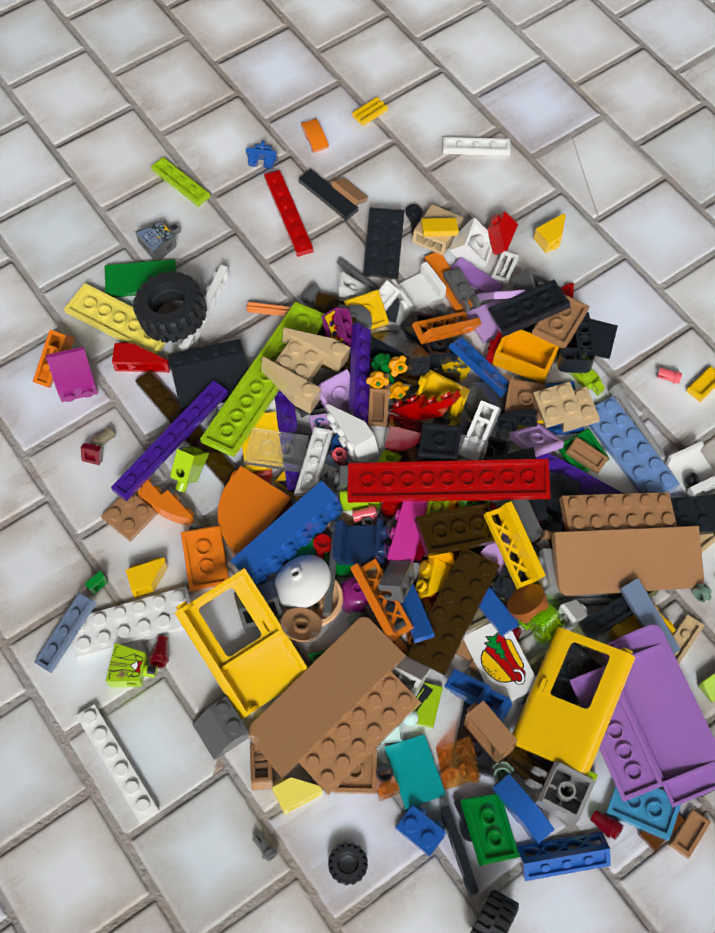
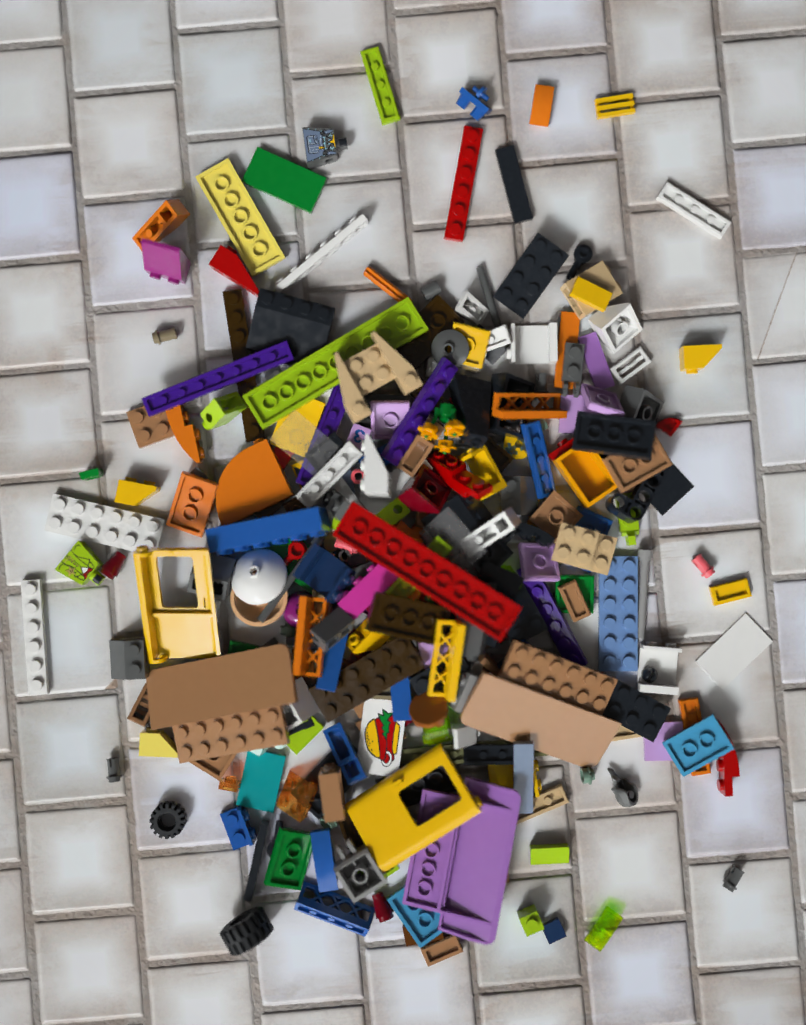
camera: 30 degrees right, 25 degrees up
(65, 632) = (45, 504): sand blue tile -> none
(91, 453) = (147, 346): dark red plate -> none
(165, 289) = (276, 218): black tyre -> none
(301, 618) = (242, 614): medium nougat dish -> none
(338, 325) = (429, 351): magenta brick -> none
(349, 191) = (535, 194): medium nougat tile -> none
(384, 777) = (237, 771): black hinge -> none
(440, 442) = (443, 528): black tile -> none
(501, 231) = (649, 329): red slope -> none

